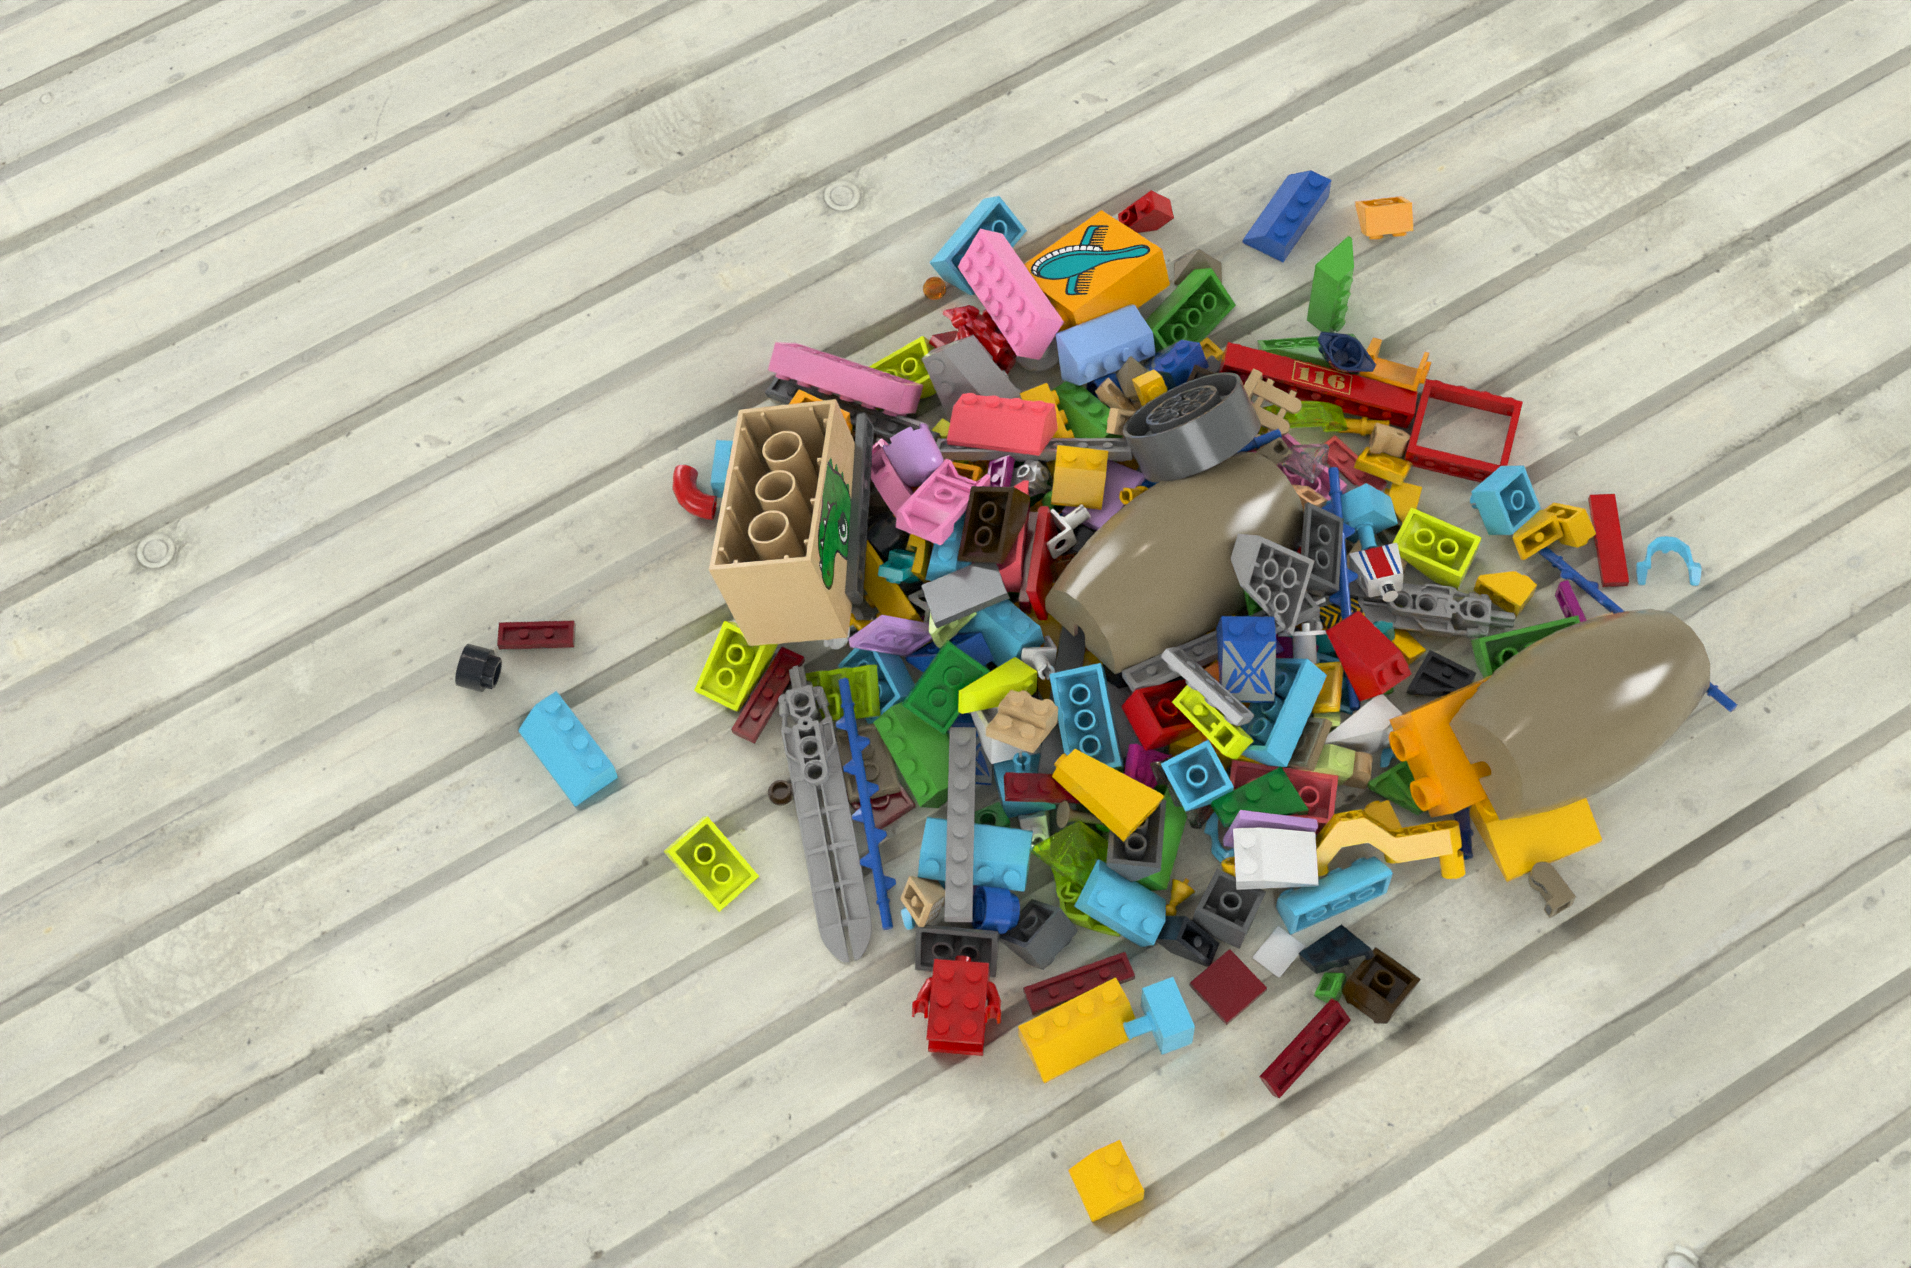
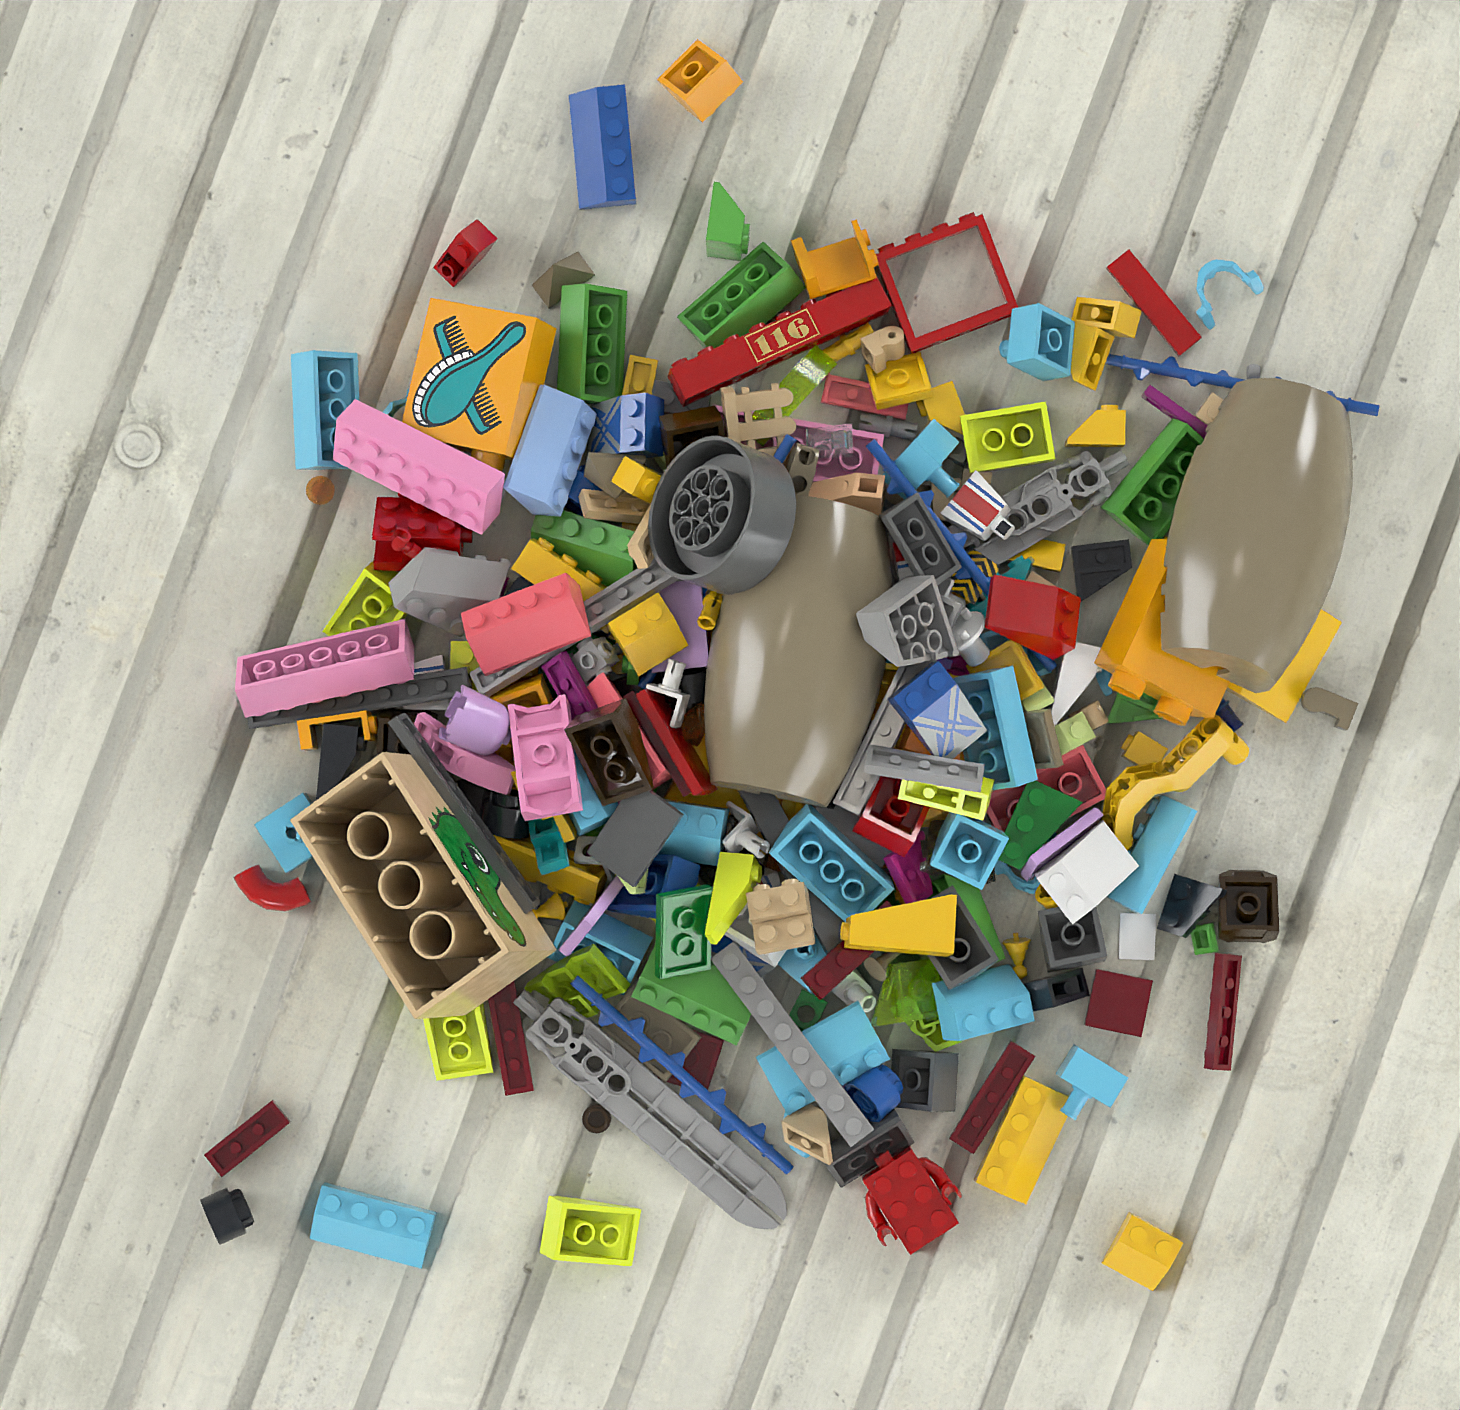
camera: 40 degrees left, 25 degrees up
(1345, 353) = (790, 297): dark blue hat -> none

